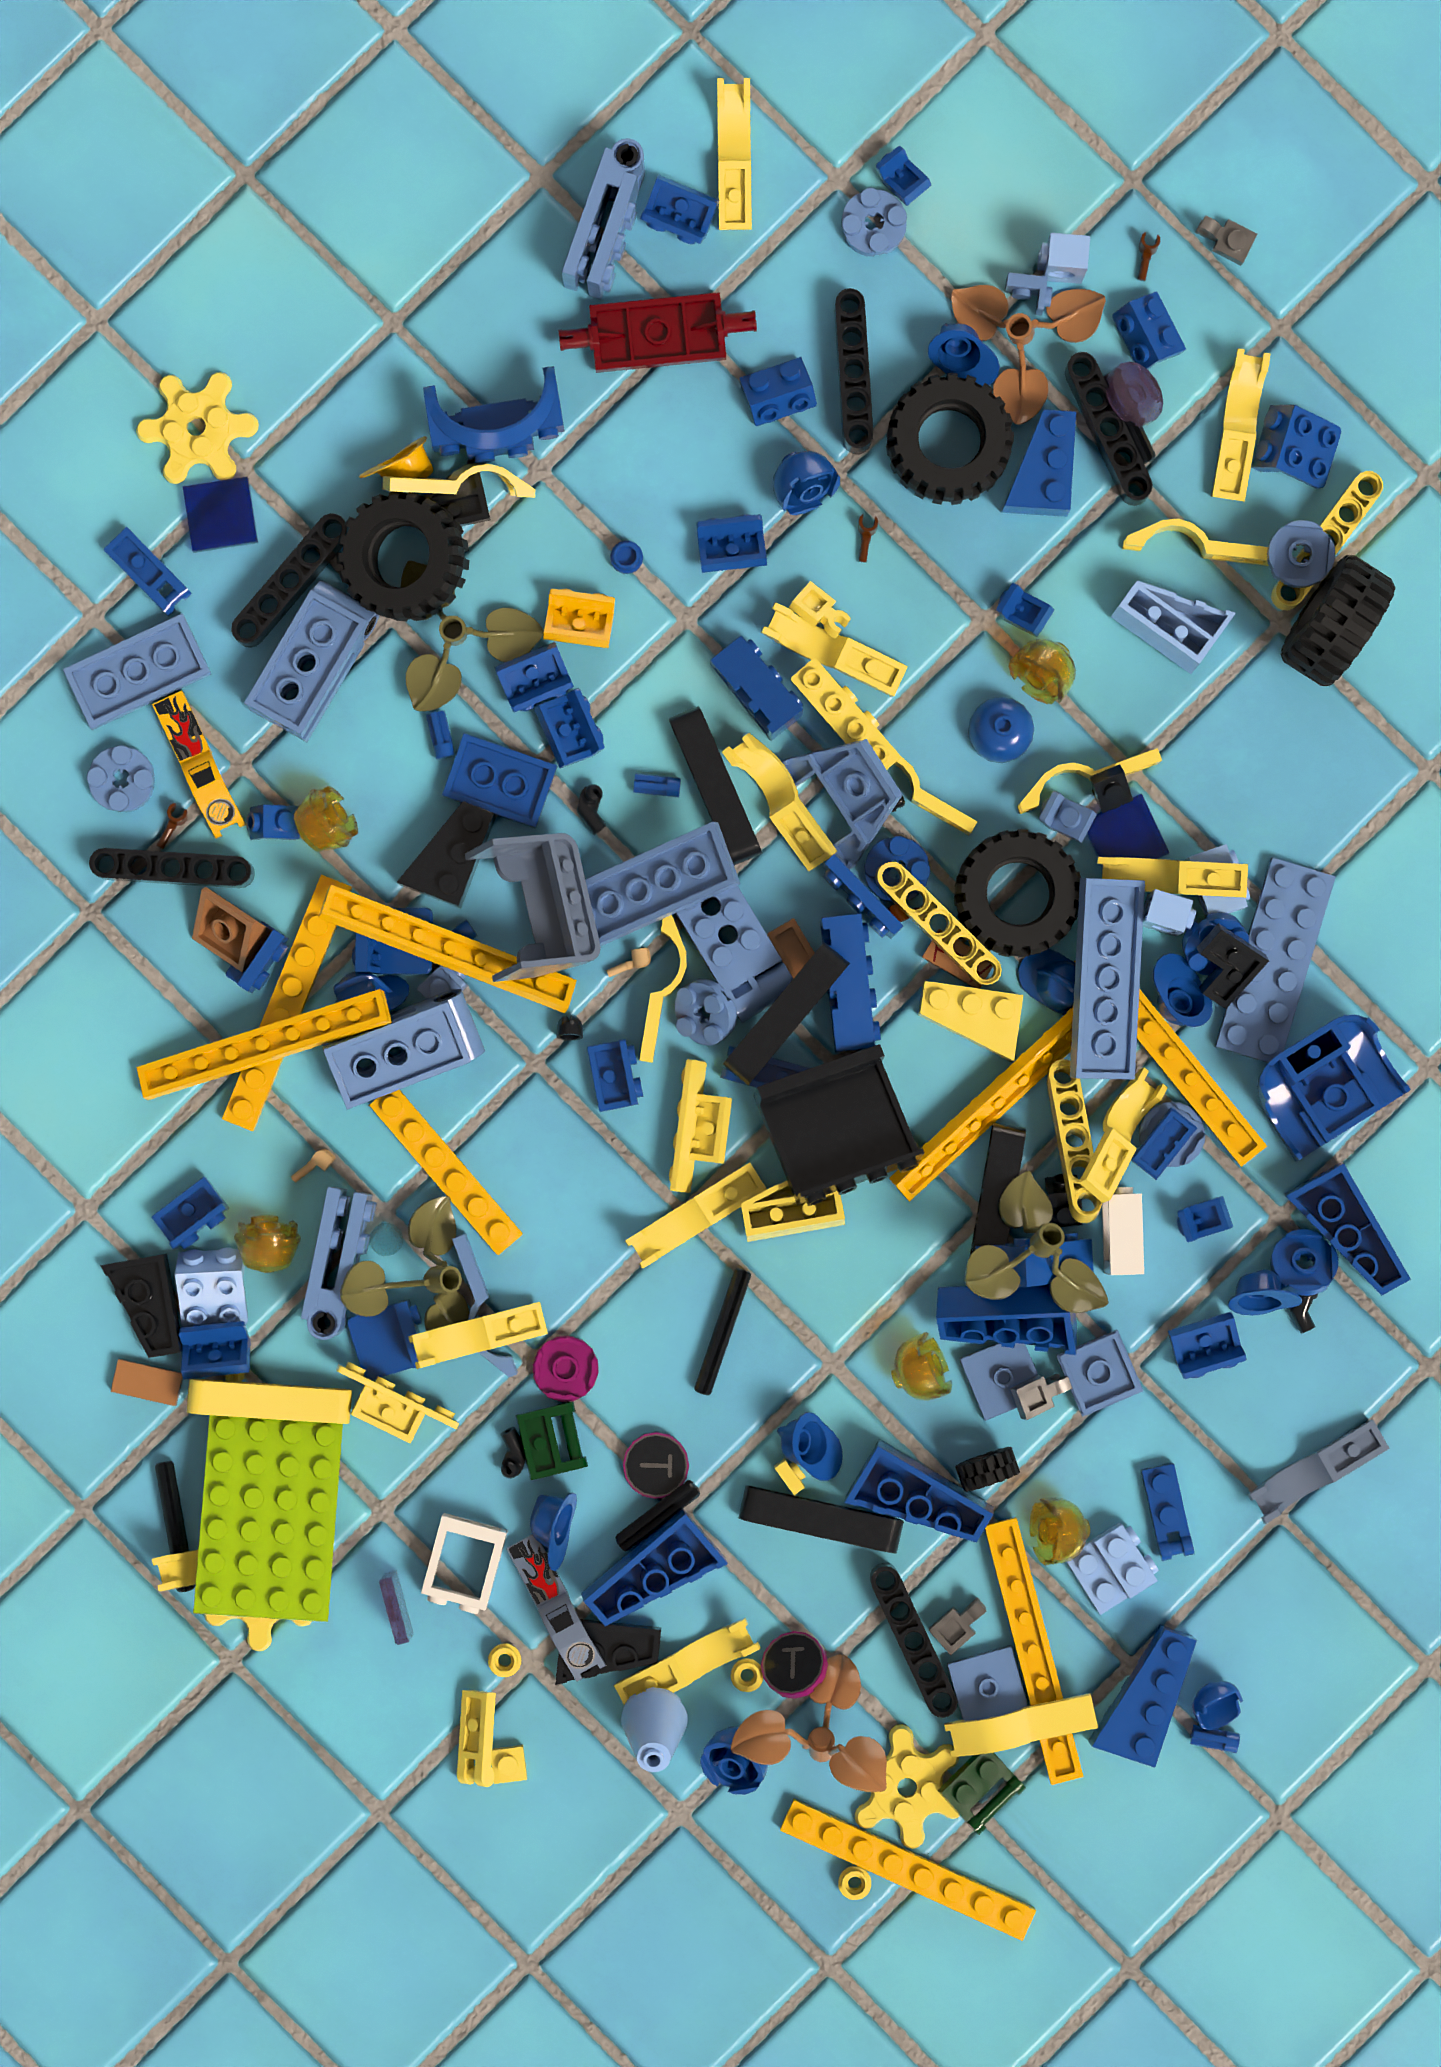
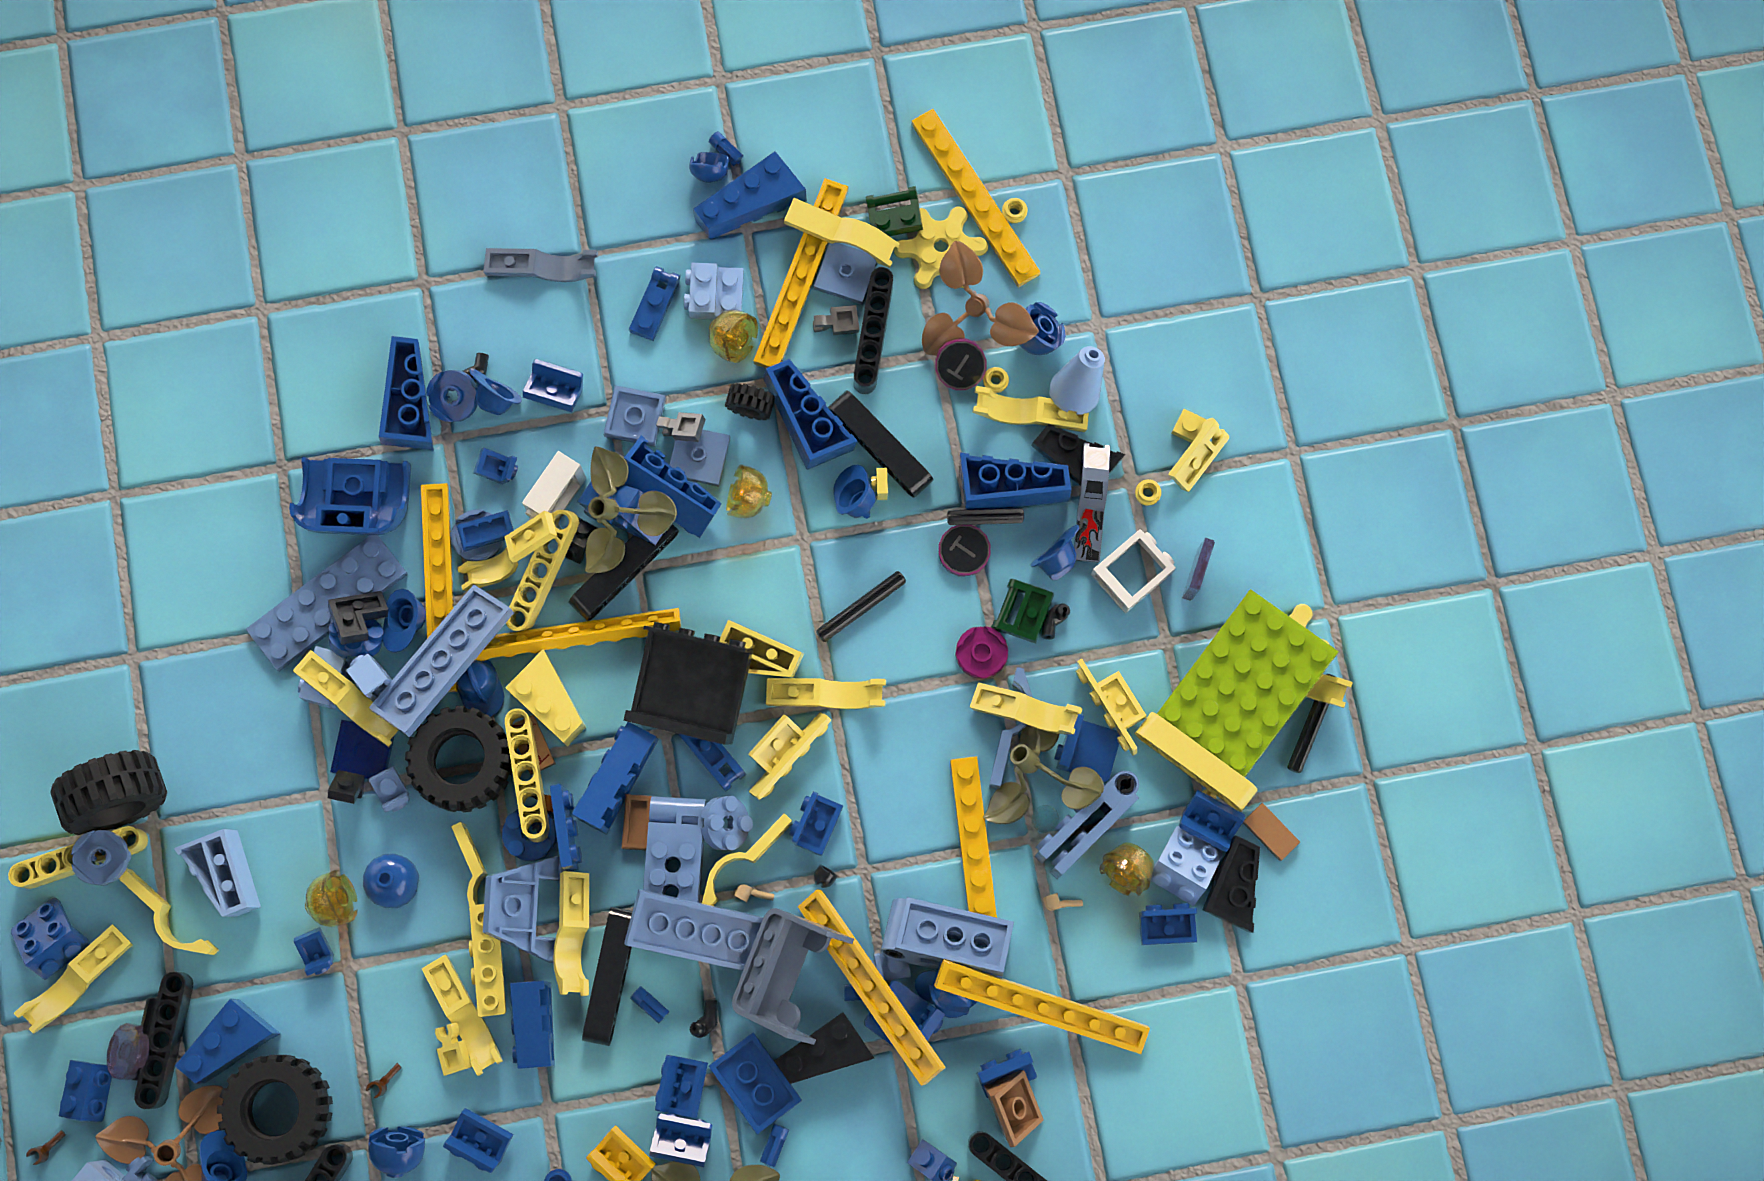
camera: 145 degrees left, 10 degrees down
(286, 1002) = (1005, 1029): yellow plate -> none
(324, 821) = (896, 1138): clear yellow cone -> none
(786, 1013) = (670, 782): black beam -> none
(1129, 766) = (402, 819): light yellow piece -> none

